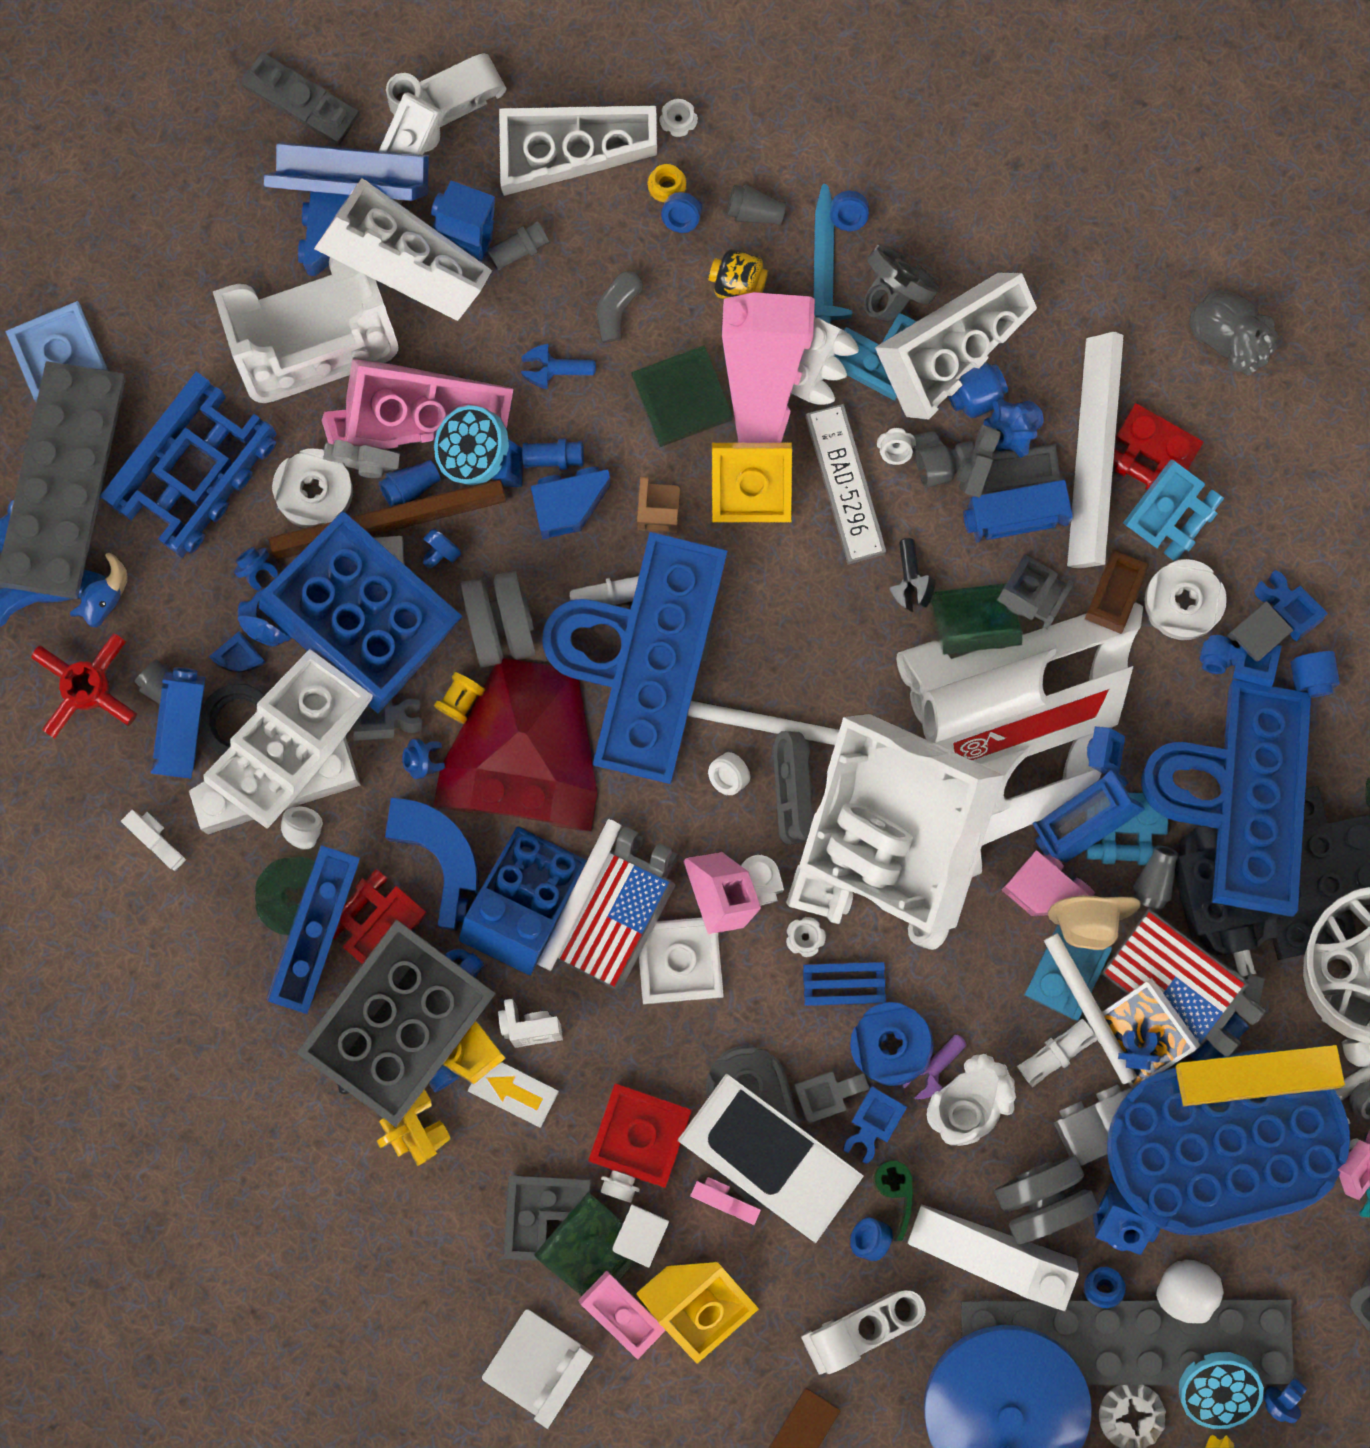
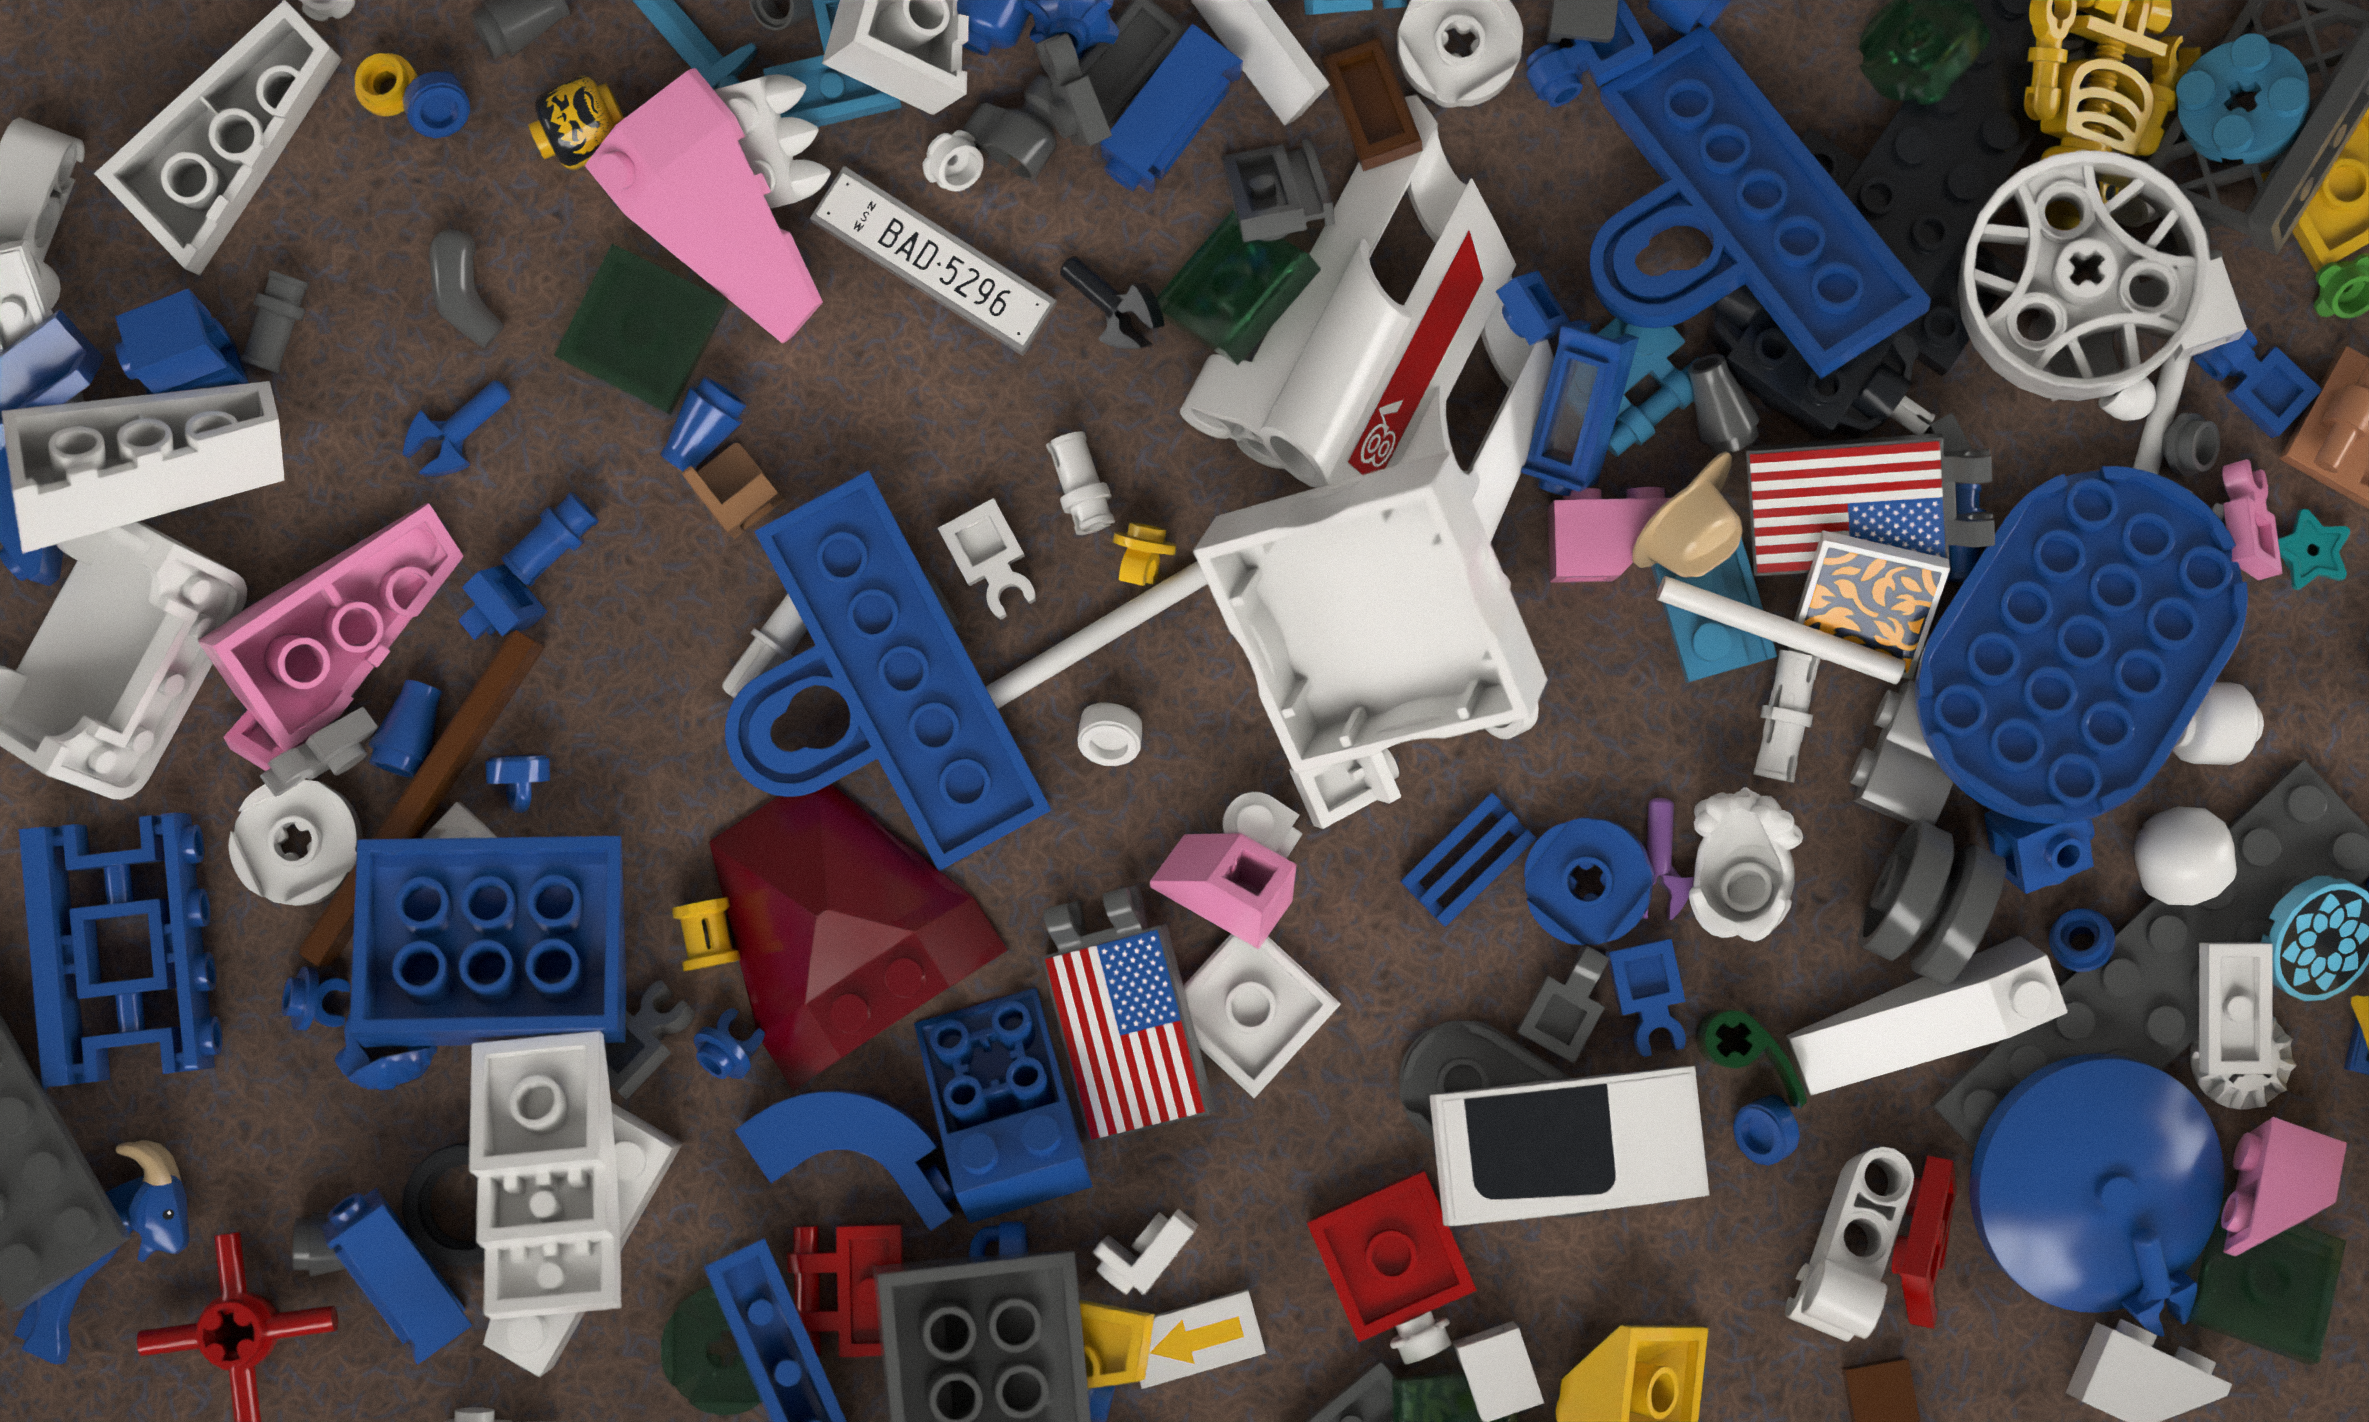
camera: 45 degrees left, 5 degrees up
(237, 655) = (390, 1123): blue tile -> none
(301, 827) = (657, 1258): white tile -> none
(471, 445) = (440, 618): medium azure tile -> none
(499, 618) = (671, 792): dark grey wheel -> none
(568, 503) = (622, 582): blue slope -> none
(579, 894) = (1063, 1039): white bar -> none
(672, 463) = (702, 424): none -> blue cone
(716, 1195) = (1541, 1245): bright pink plate -> none
(750, 637) = (985, 549): none -> white plate
(751, 482) = (821, 359): yellow plate -> none
(792, 786) = (1199, 682): dark grey plate -> none
(816, 936) = (1370, 828): white plate -> none
(818, 705) = (1142, 556): none -> yellow plate
(819, 650) = (1083, 492): none -> white pin
(869, 845) = (1357, 673): white brick -> none
(900, 1360) = (1926, 1246): none -> red wing
(1139, 1057) = (1893, 635): blue plate -> none
(1148, 1384) = (2235, 1007): none -> white plate
(1259, 1075) = (2048, 533): yellow tile -> none
(1262, 1244) = (2222, 727): none -> white head

